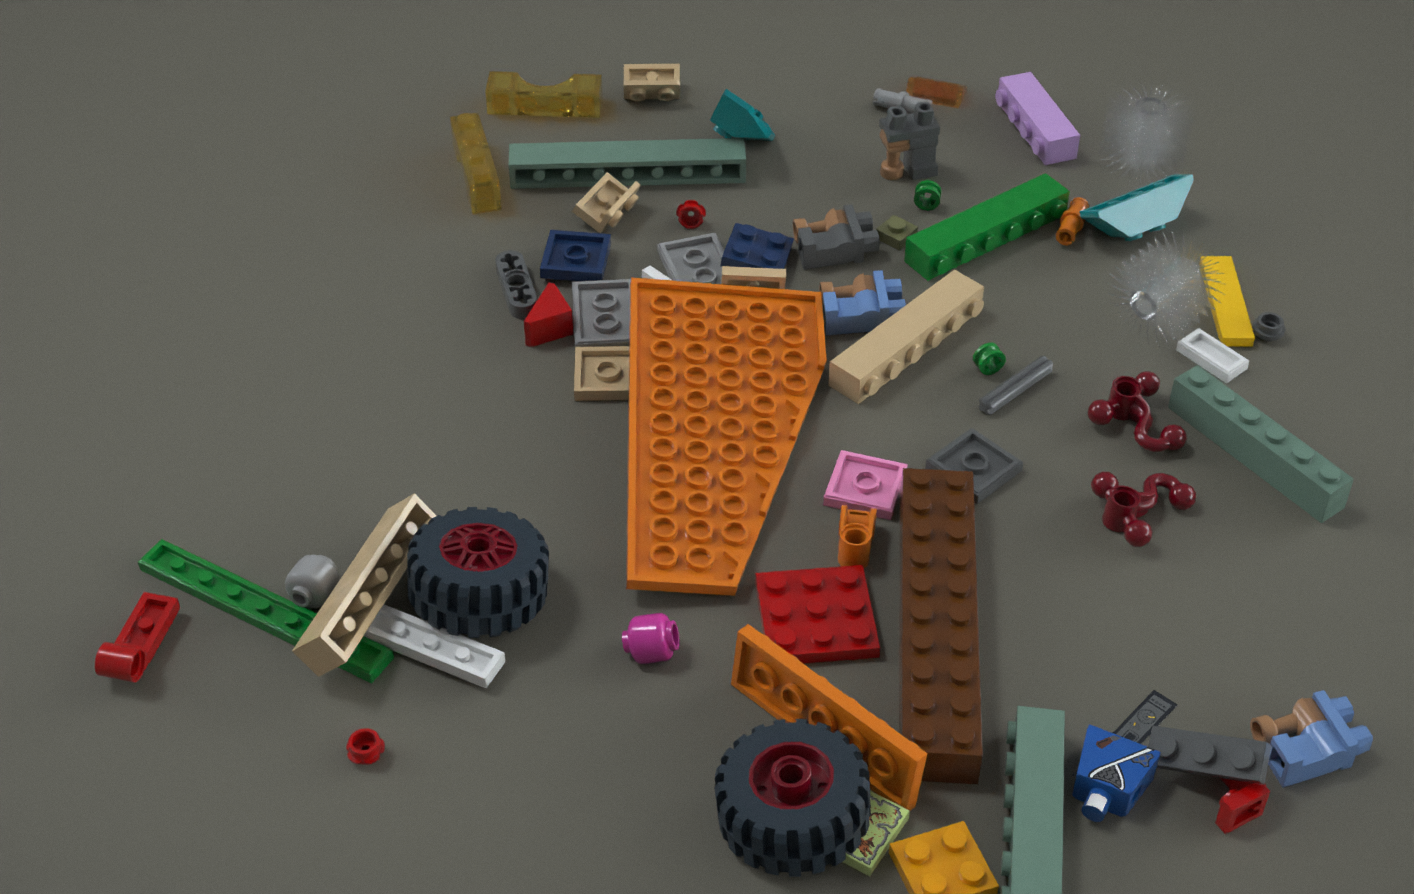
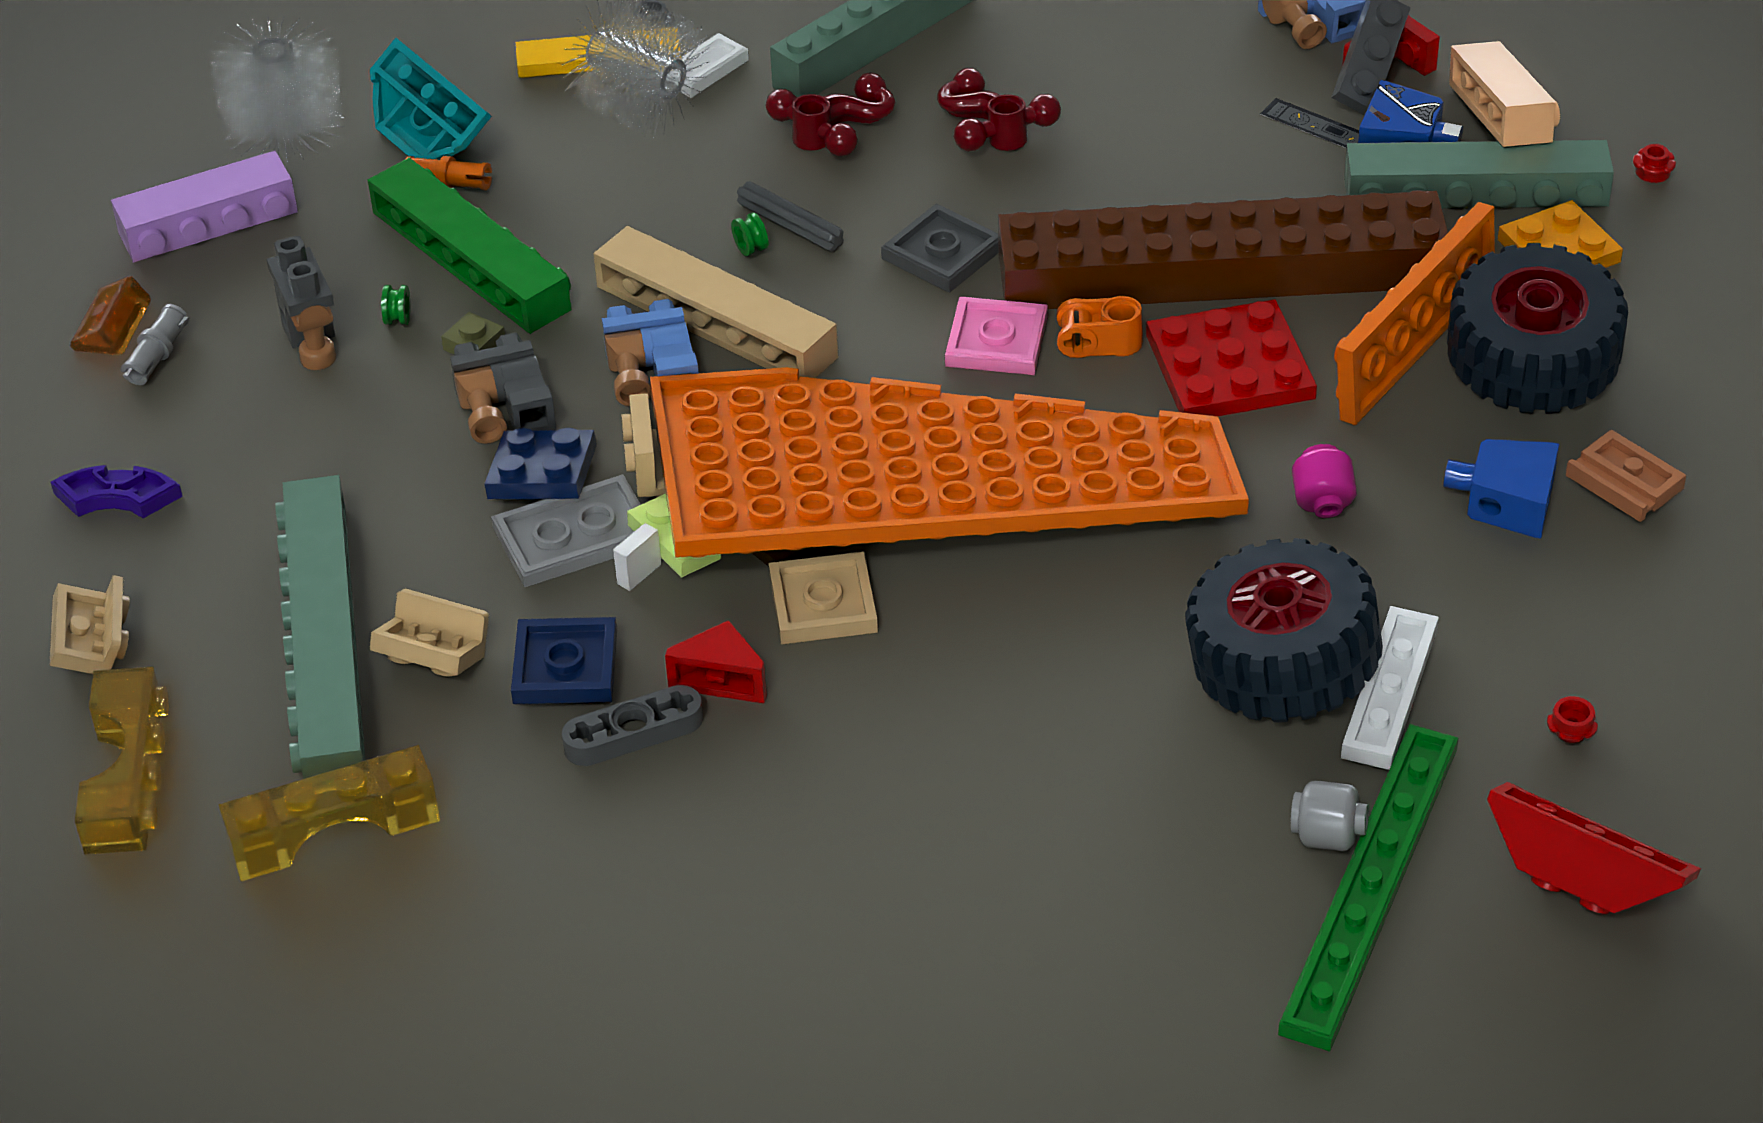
camera: 95 degrees left, 0 degrees up
(138, 639) = (1484, 994): red plate -> none
(227, 718) = (1582, 855): none -> red wedge
(362, 588) = (1332, 738): tan brick -> none
(601, 312) = (674, 610): light grey tile -> none
(620, 841) = (1626, 475): none -> nougat plate
(621, 756) = (1508, 483): none -> blue torso
(690, 221) = (449, 545): red plate -> none
(739, 119) = (233, 489): teal wedge -> none
(777, 95) = (133, 490): none -> dark purple tile
(1137, 840) = (1503, 94): none -> light nougat brick

